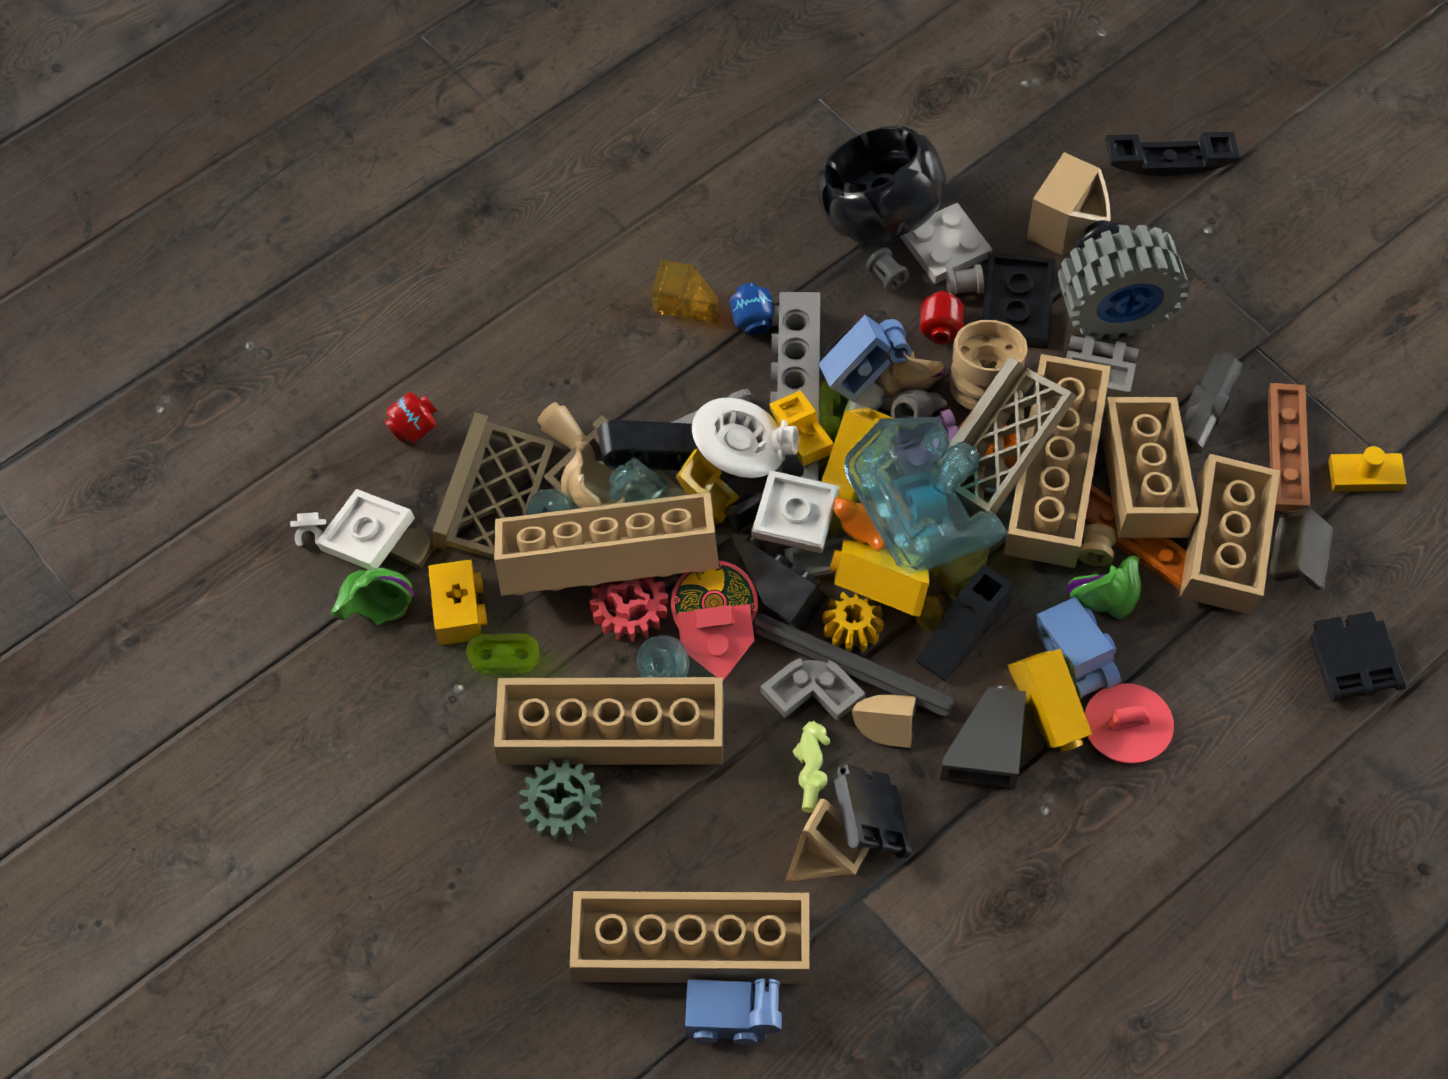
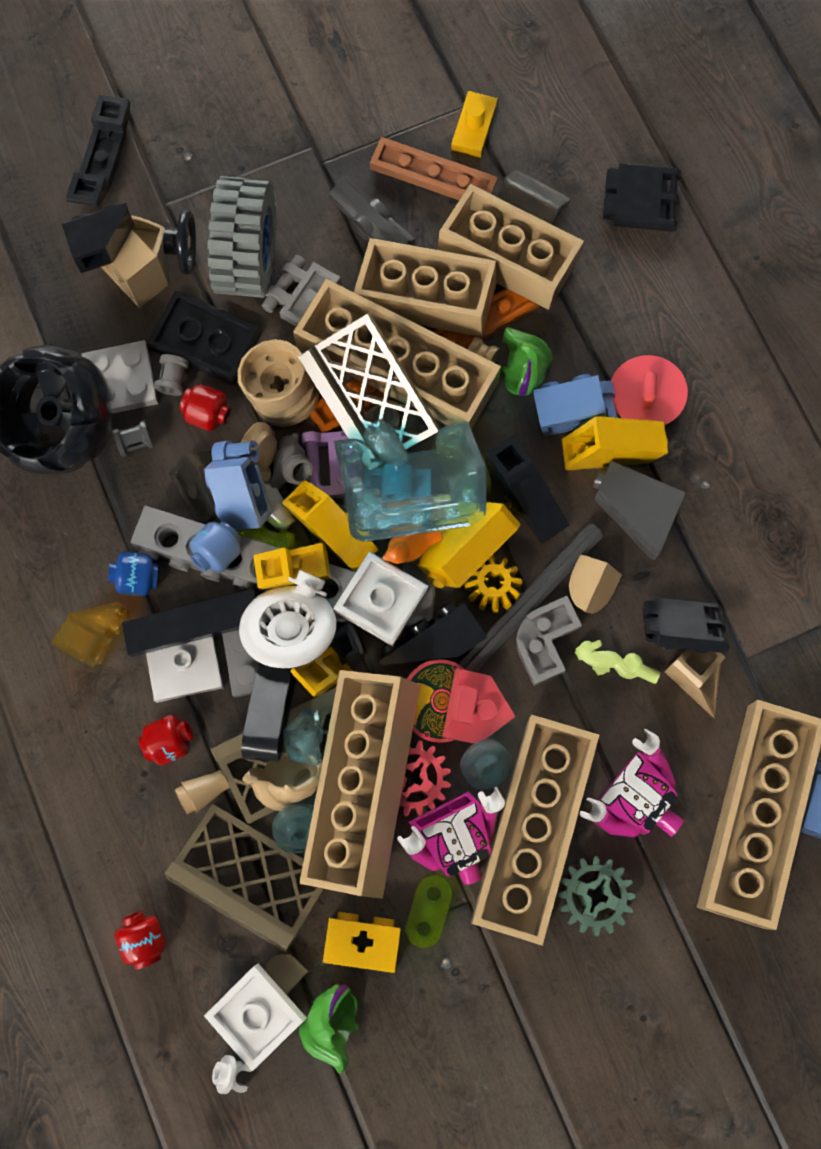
camera: 75 degrees left, 15 degrees up
(578, 642) = (455, 835): none -> torso
(601, 383) = (165, 740): none -> red head
(674, 814) = (639, 795): none -> torso
(683, 378) = (184, 670): none -> white plate
(716, 361) = (186, 623): none -> black tile
(796, 355) = (215, 547): none -> medium blue head
(1062, 158) = (98, 236): none -> black slope

